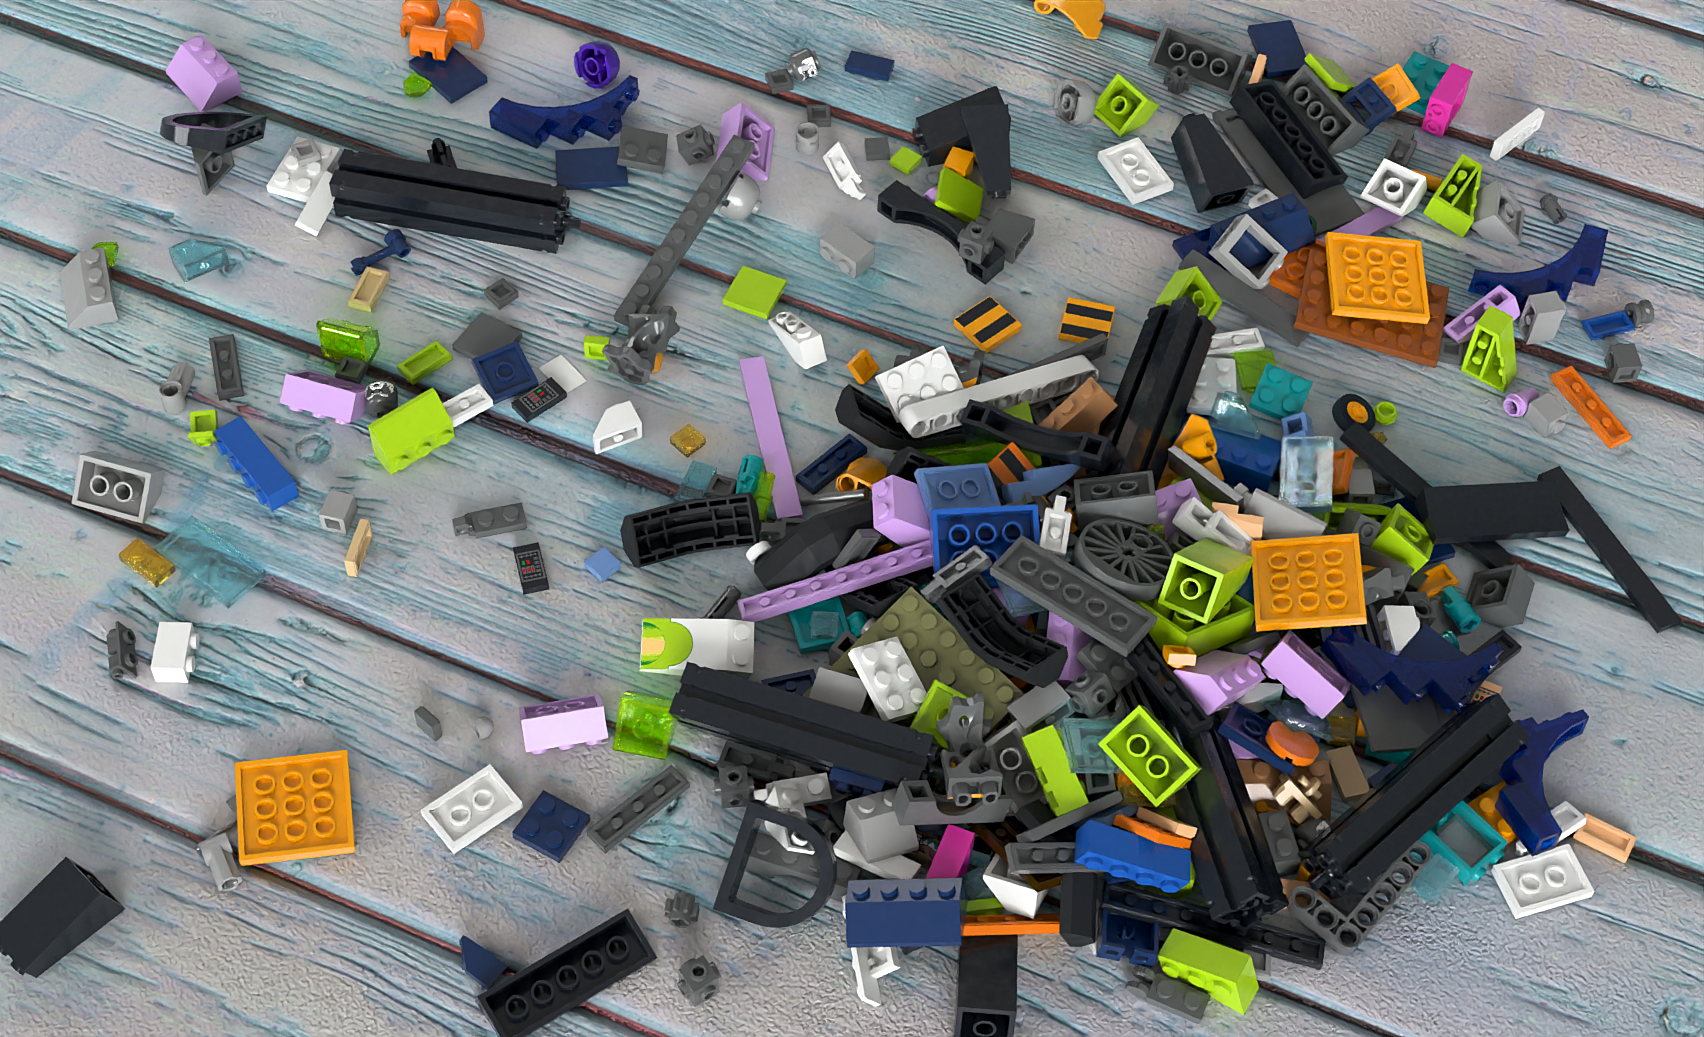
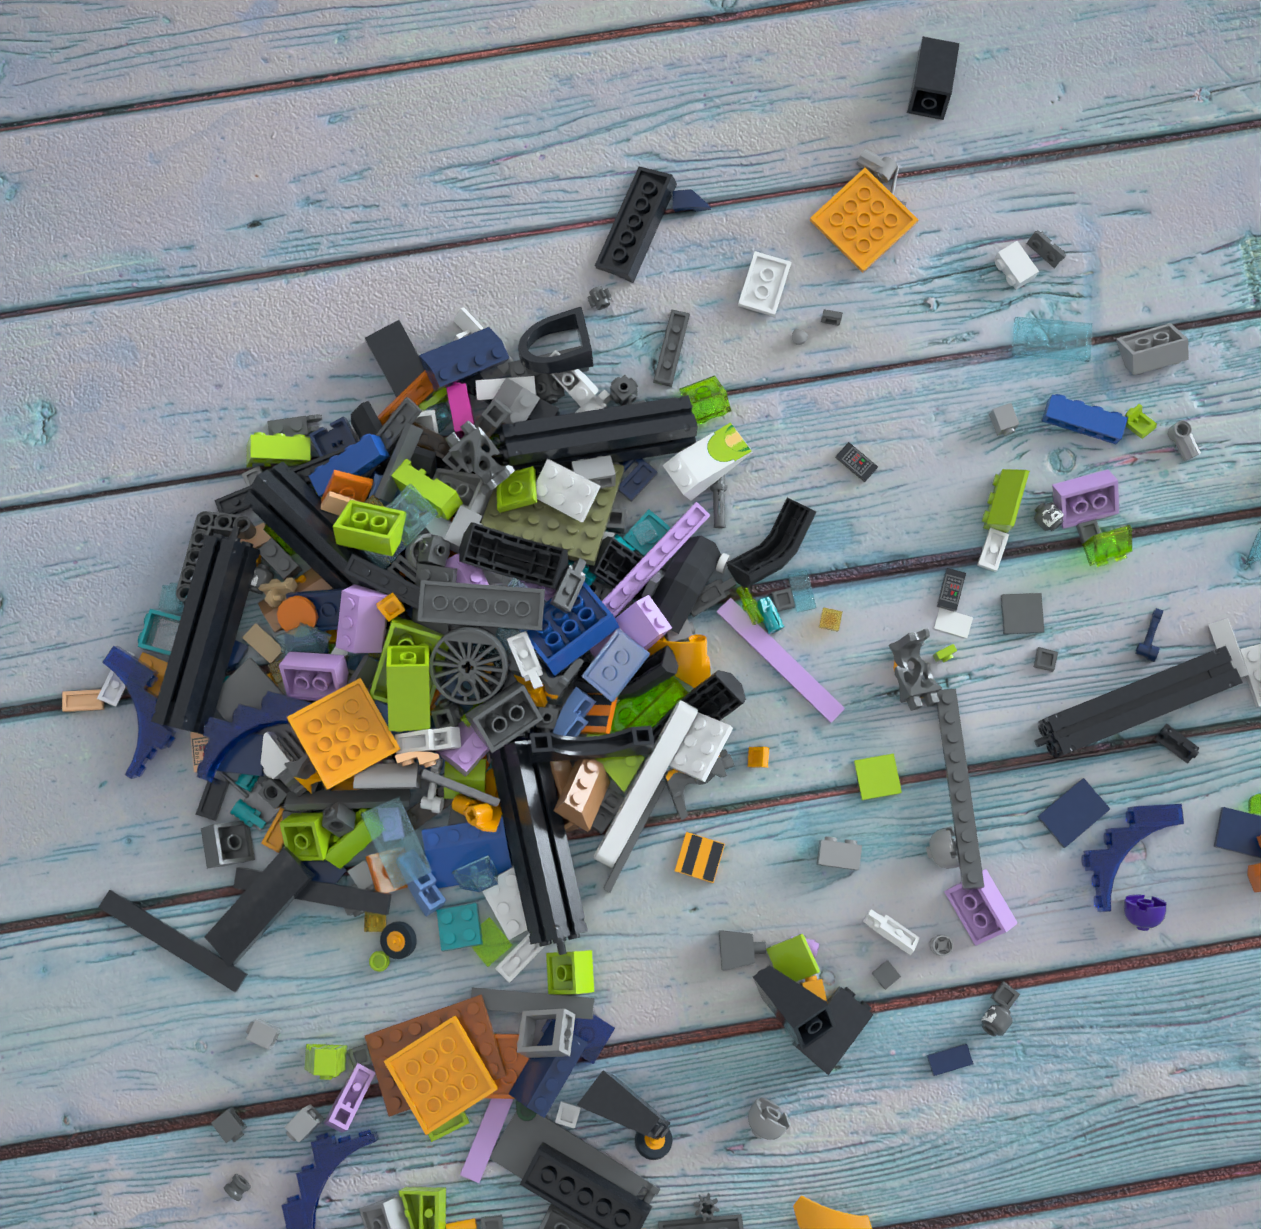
camera: 150 degrees right, 25 degrees up
(147, 562) = (1088, 313): clear yellow plate -> none
(226, 367) = (1170, 480): dark grey tile -> none
(358, 547) = (970, 403): tan tile -> none
(368, 289) = (1134, 603): tan tile -> none
(424, 362) = (1048, 569): lime tile -> none
(491, 521) = (906, 479): dark grey hinge -> none
(505, 372) = (987, 590): dark blue plate -> none
(551, 826) = (712, 305): dark blue plate -> none
(563, 723) = (755, 369): slope -> none
(602, 564) = (815, 493): medium blue tile -> none
(617, 427) = (883, 599): white slope -> none
(642, 149) = (1050, 852): dark grey plate -> none
(695, 144) = (1014, 878): dark grey brick -> none
(698, 980) = (562, 268): dark grey brick -> none
(799, 339) = (818, 752): white slope -> none
(819, 115) = (951, 979): dark grey tile -> none
(831, 464) = (729, 654): dark blue tile -> none
(834, 497) = (701, 629): flat silver bar -> none
(905, 160) = (857, 977): lime tile -> none
(905, 206) = (829, 925): black arch -> none
(975, 242) = (737, 907): dark grey brick -> none
(1085, 320) = (632, 906): tile -> none
(1124, 106) = (729, 1147): lime slope -> none
(1135, 171) = (683, 1082): white plate -> none
(1395, 188) = (476, 1190): white slope -> none
(1518, 402) = (287, 1036): lavender cone -> none
(1542, 881) = (109, 631): white plate -> none
(1590, 407) = (237, 1069): orange tile -> none
(1608, 325) = (256, 1161): blue tile -> none

